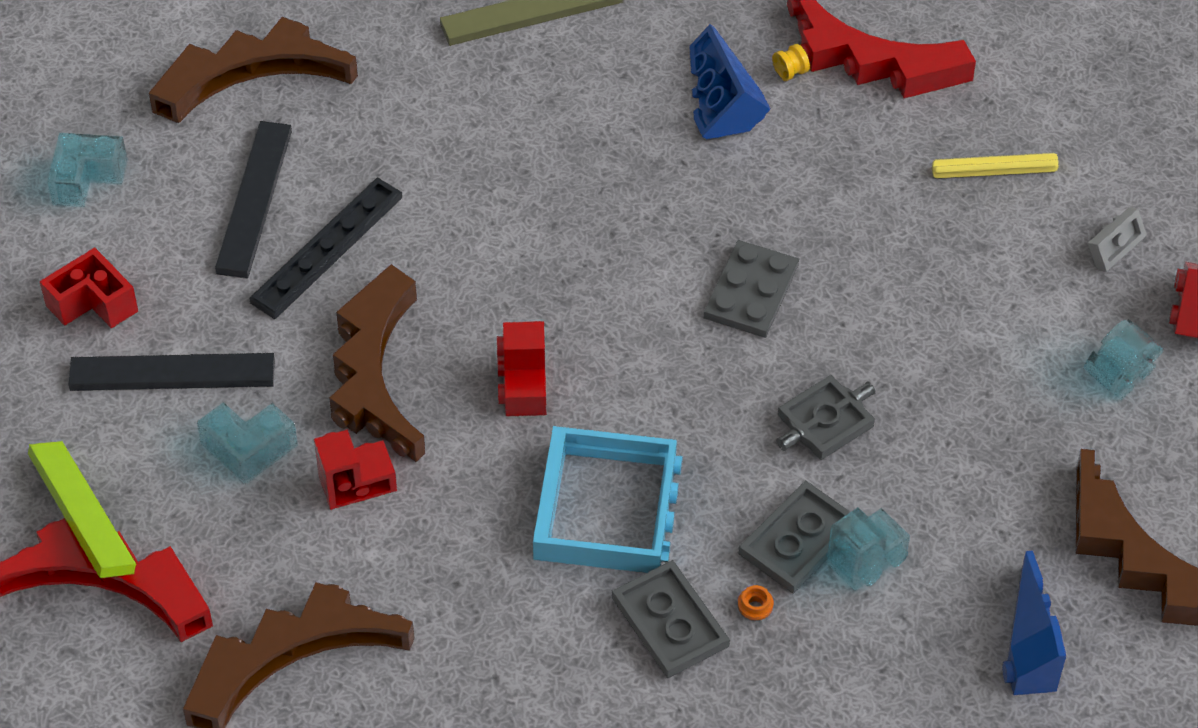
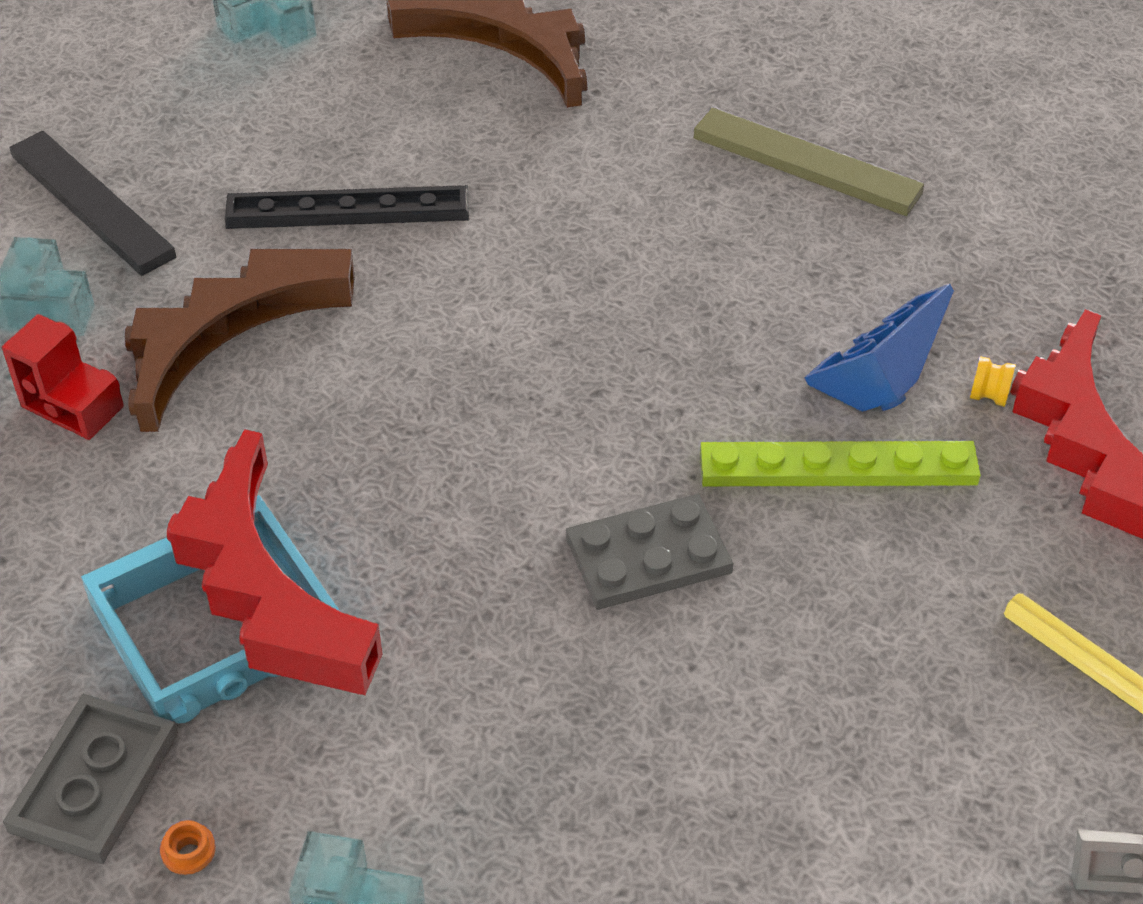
camera: 50 degrees right, 5 degrees down
(87, 285) = (121, 87): red brick -> none
(253, 200) = (351, 129): black tile -> none
(523, 366) = (325, 429): red brick -> none
(627, 463) = (282, 624): none -> red arch
(773, 169) = (839, 463): none -> lime plate
(794, 537) = (288, 805): dark grey plate -> none
(826, 417) = (529, 737): dark grey plate -> none

